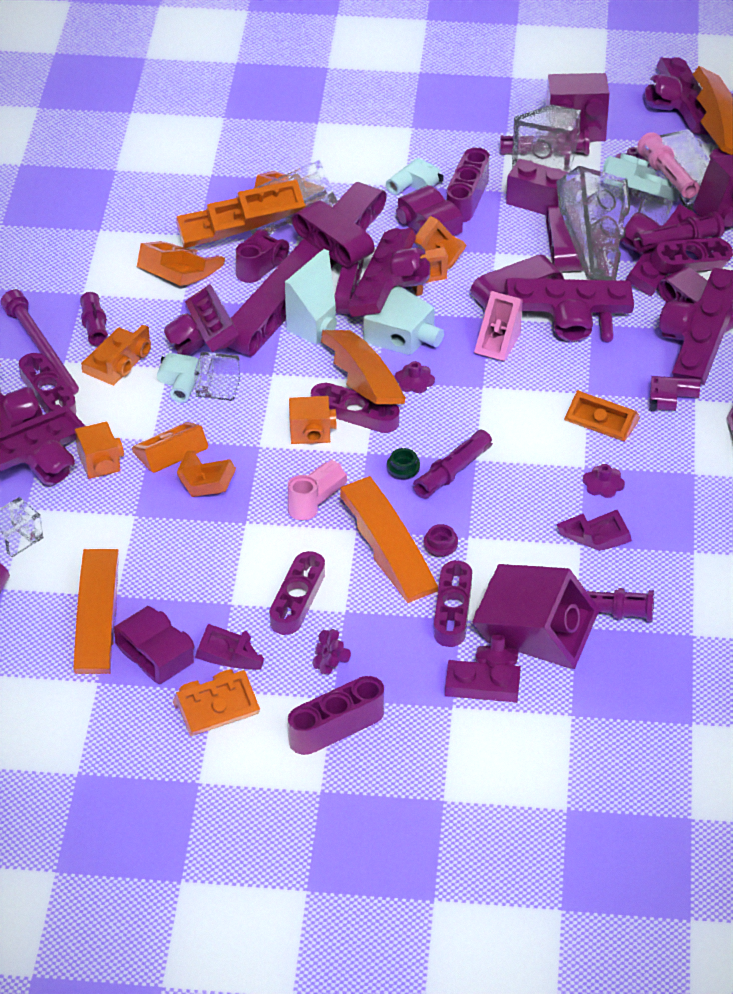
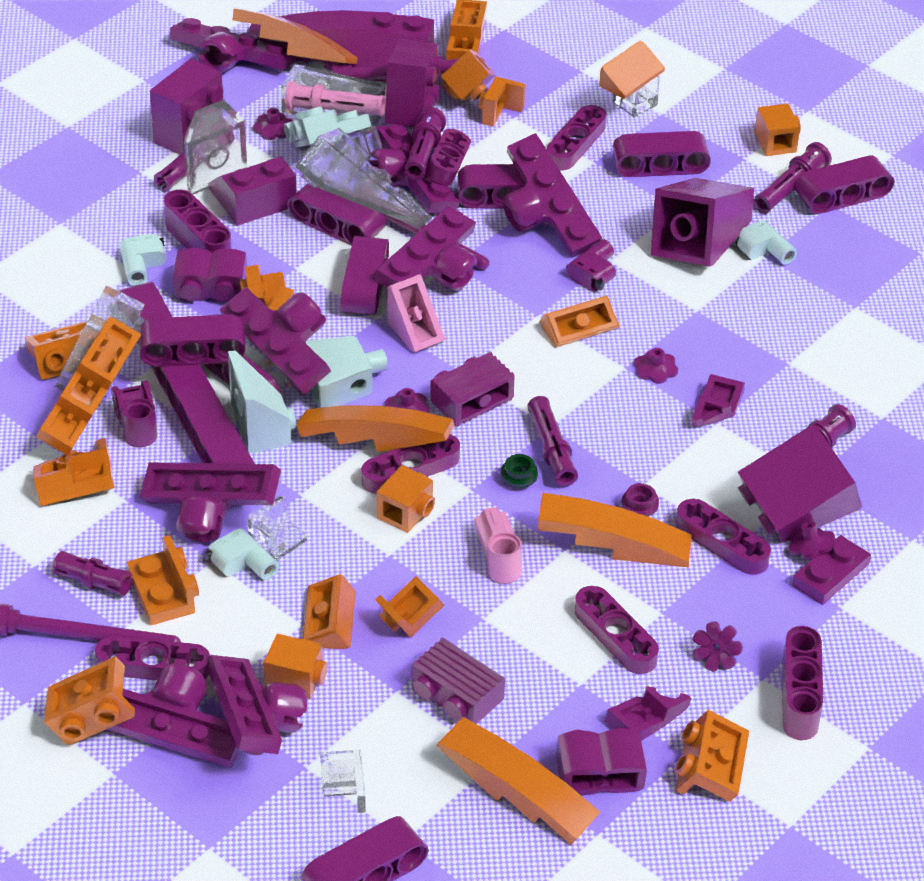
camera: 55 degrees left, 0 degrees up
(159, 535) = (457, 682): none -> magenta brick
(458, 395) = (472, 388): none -> magenta brick

